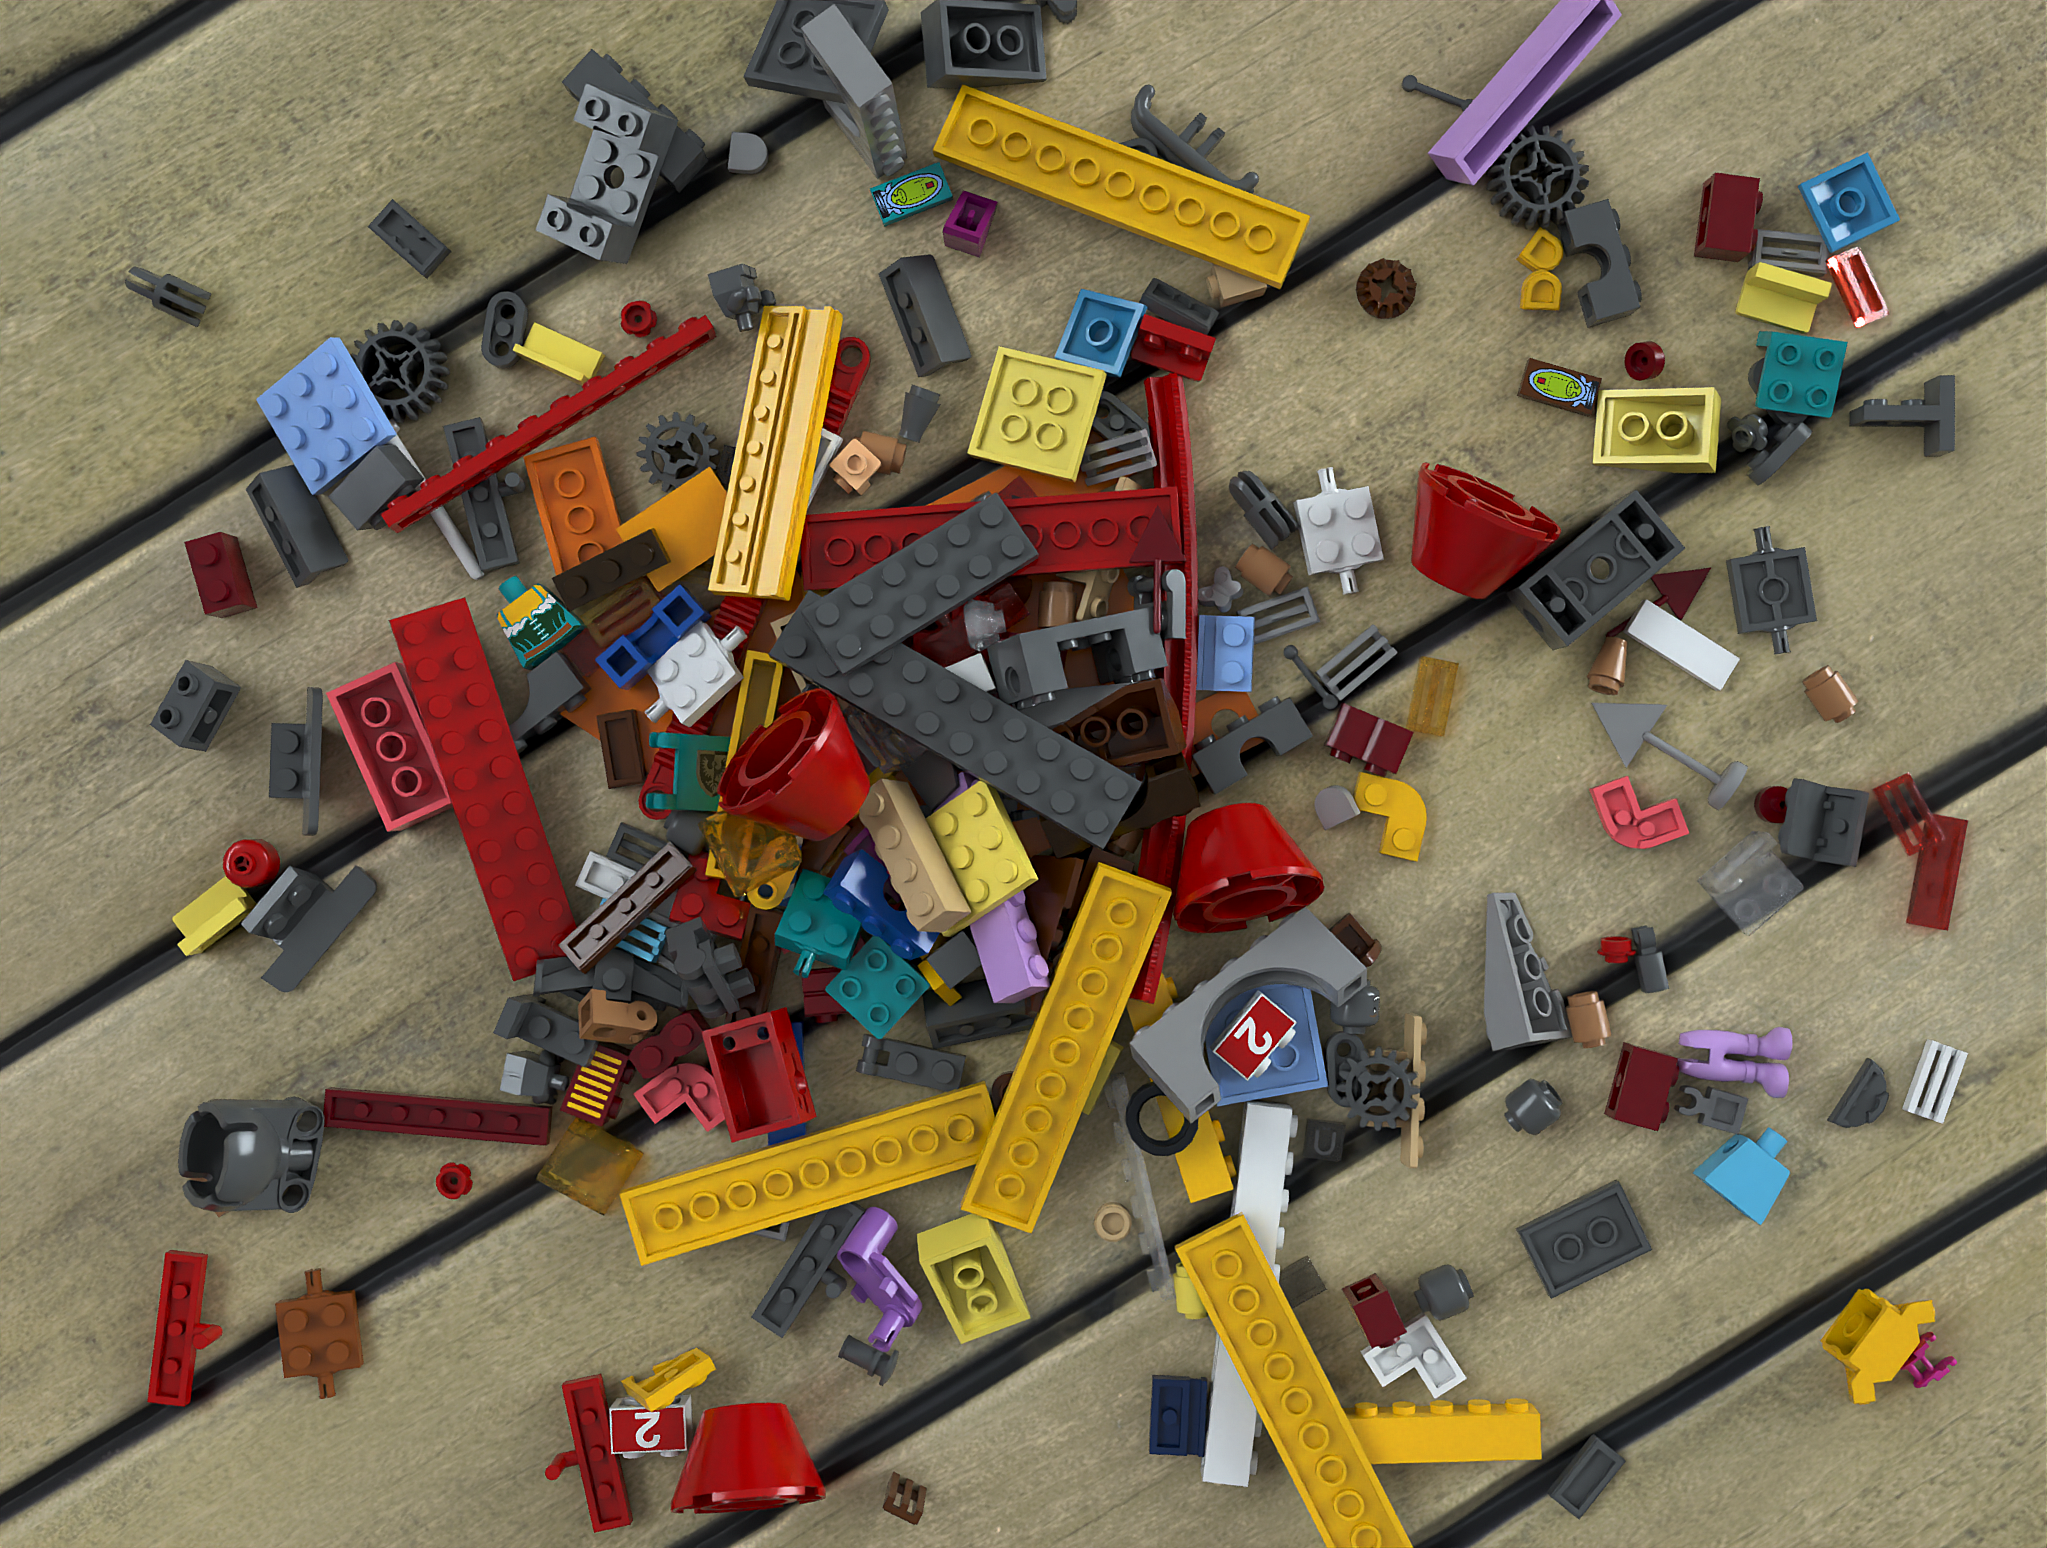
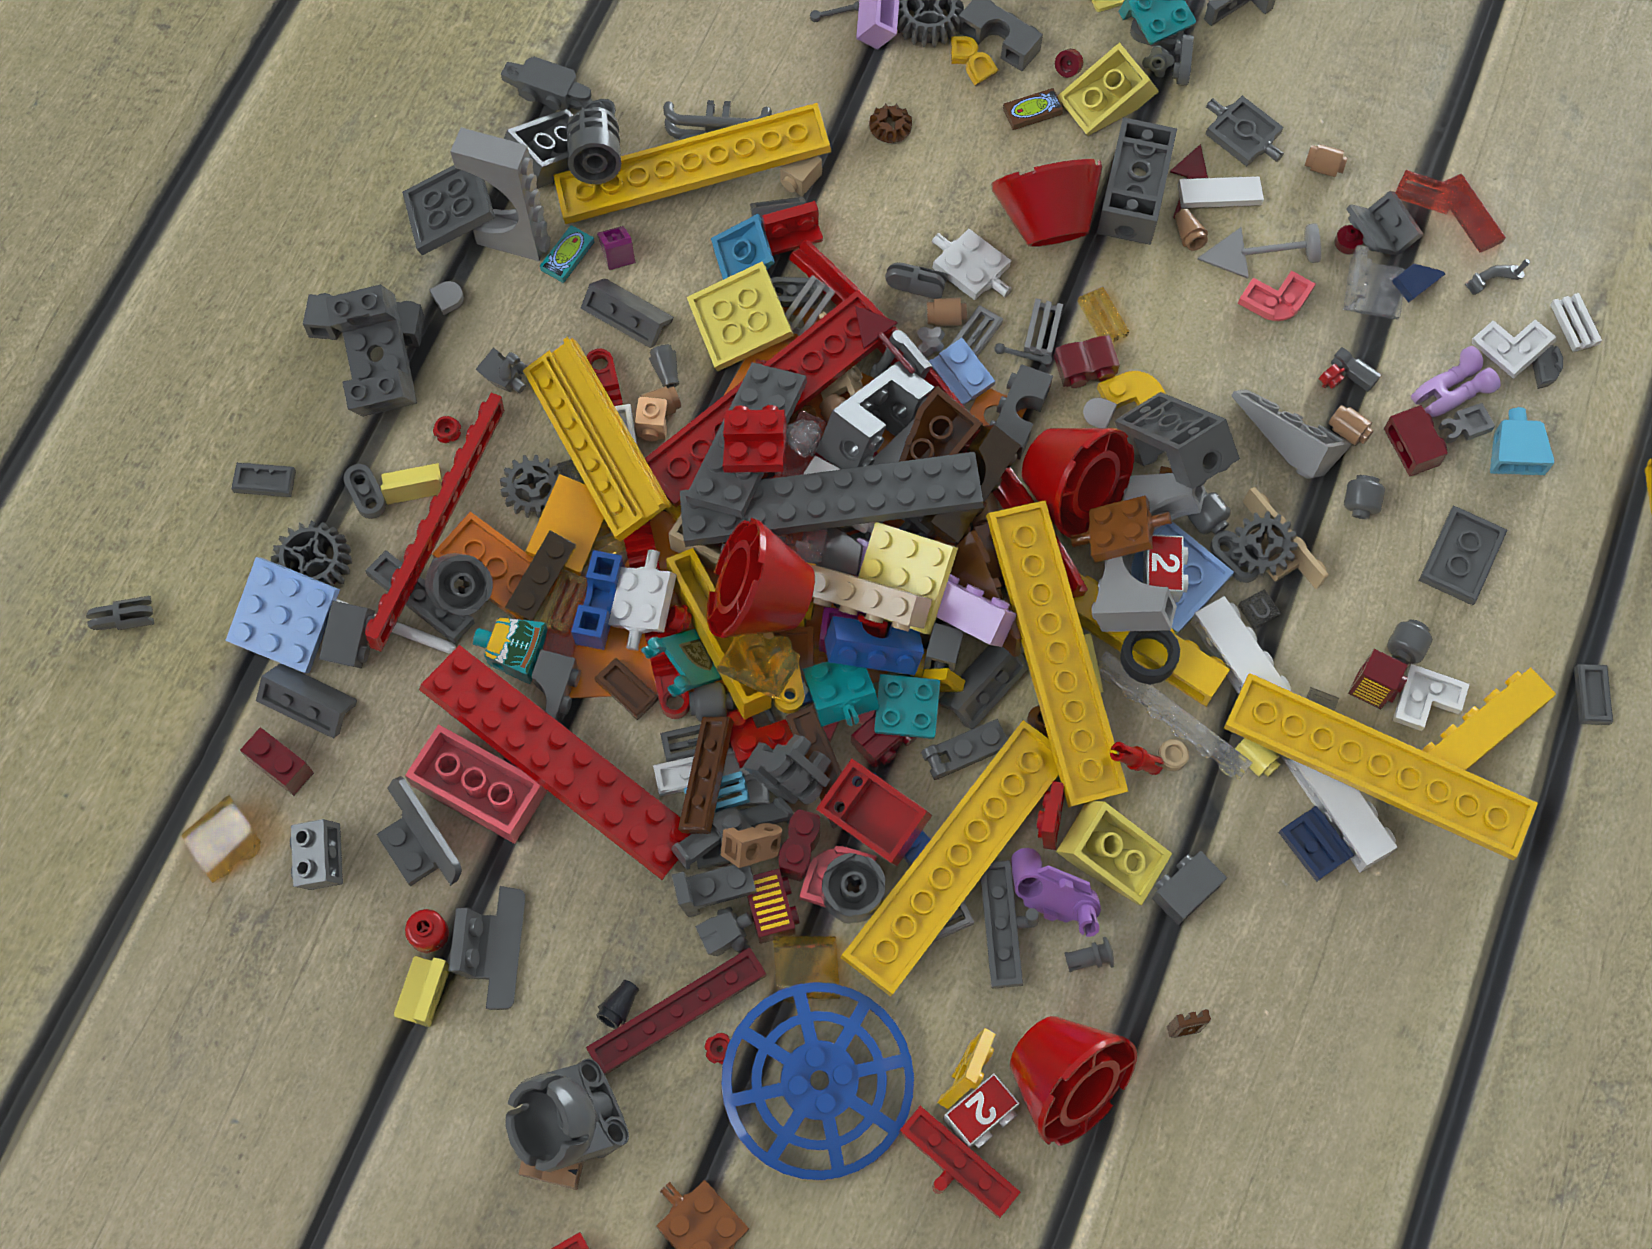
camera: 35 degrees left, 20 degrees down
(121, 616) = (222, 839): none -> clear yellow slope
(386, 1068) = (617, 1005): none -> black cone
(514, 522) = (466, 598): none -> dark grey brick
(524, 1266) = (796, 1084): none -> blue dish
(663, 1147) = (857, 870): none -> dark grey brick
(717, 721) = (678, 618): none -> red plate
(915, 602) = (754, 439): none -> red plate
(927, 1206) = (1049, 820): none -> red plate
(1016, 1365) = (1188, 887): none -> dark grey brick
(1029, 80) = (594, 143): none -> dark grey cylinder
(1065, 1207) = (1136, 758): none -> red pin
(1236, 969) = (1120, 529): none -> dark orange plate
(1379, 917) = (1193, 438): none -> dark grey plate
(1802, 909) = (1416, 280): none -> dark blue tile
(1829, 1067) = (1511, 352): none -> white plate
(1917, 971) = (1478, 283): none -> dark grey piece

